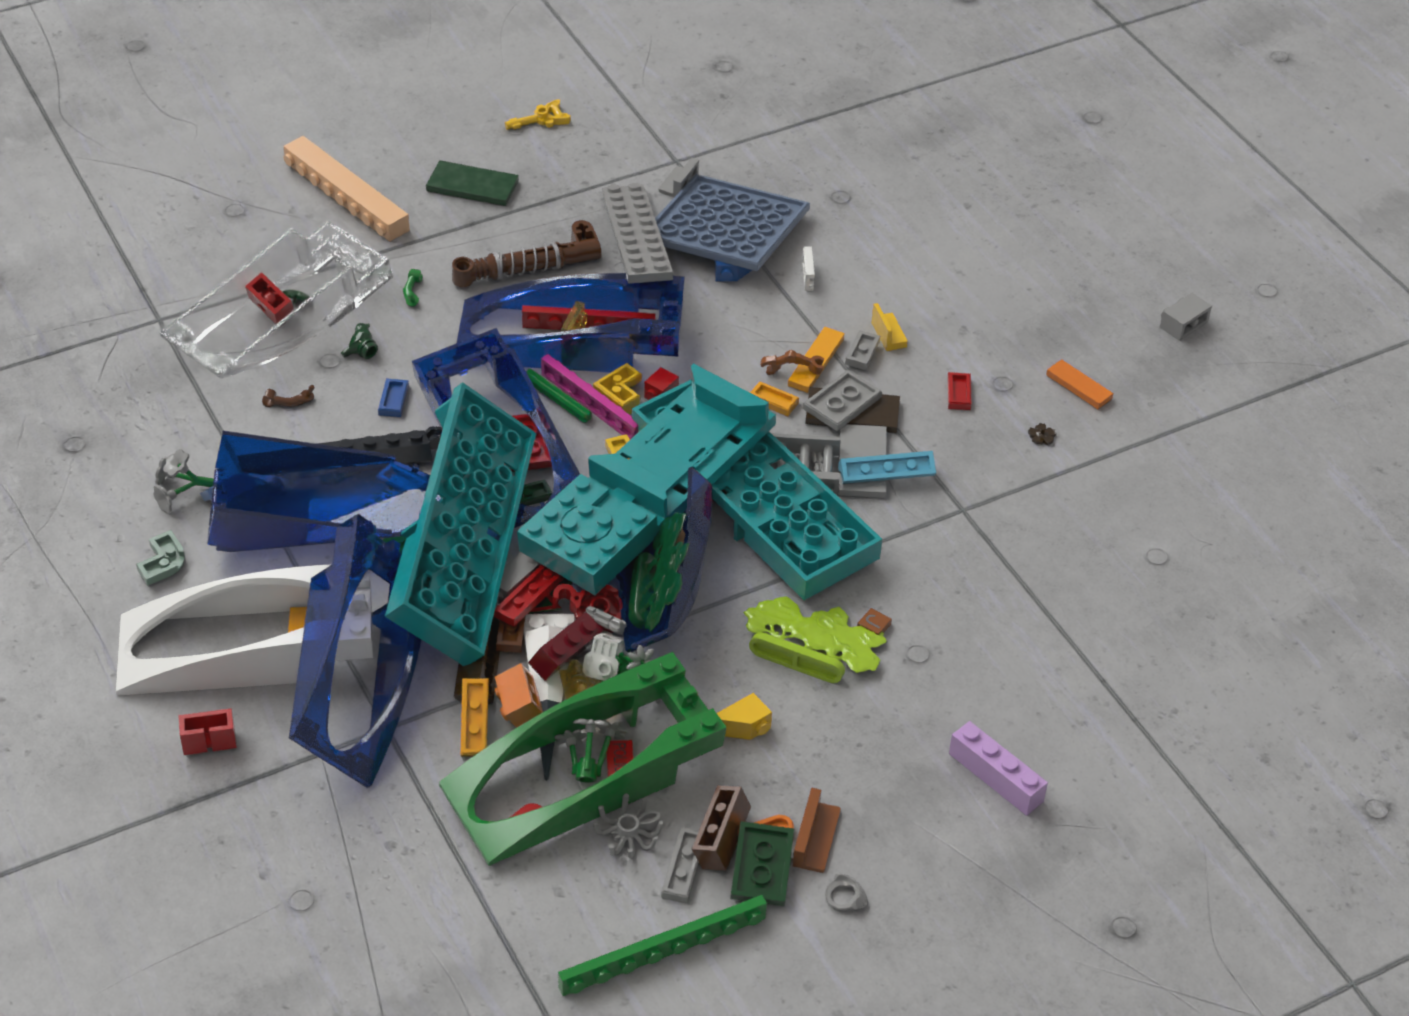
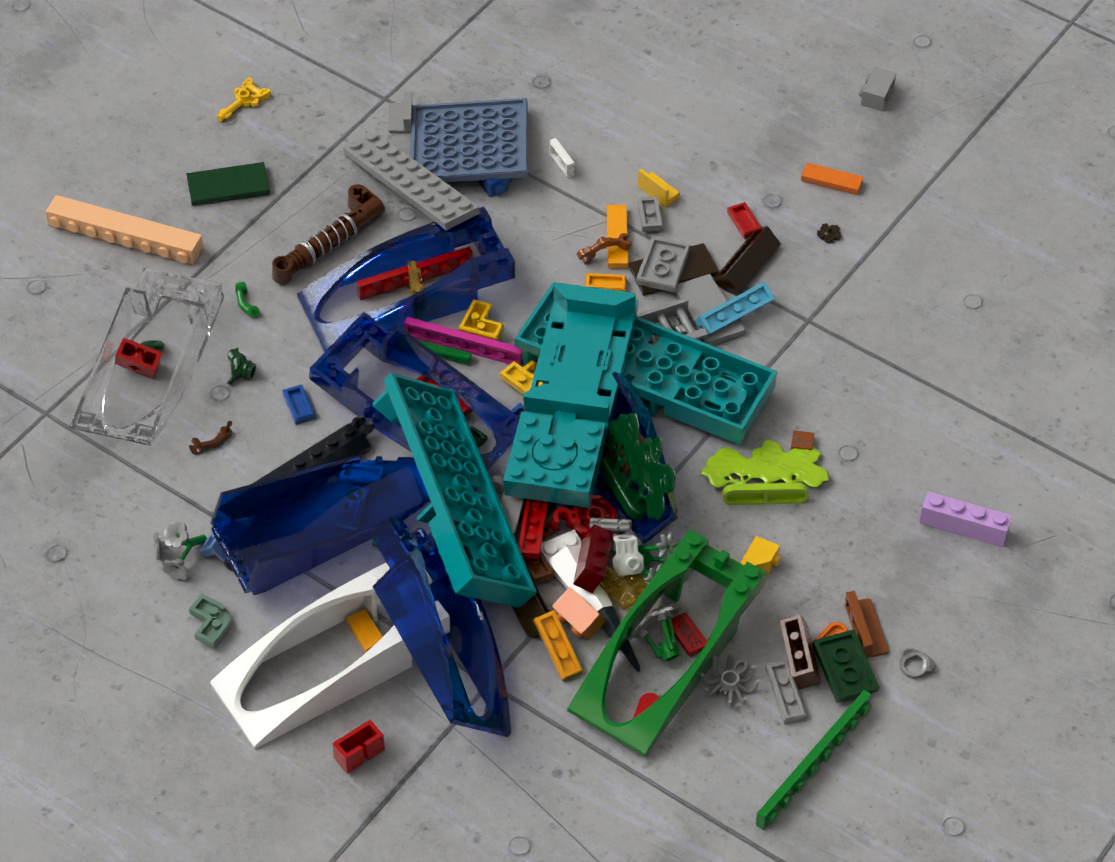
camera: 25 degrees left, 5 degrees up
(659, 383) = (513, 309): red brick -> none
(935, 428) = (747, 260): none -> dark brown brick

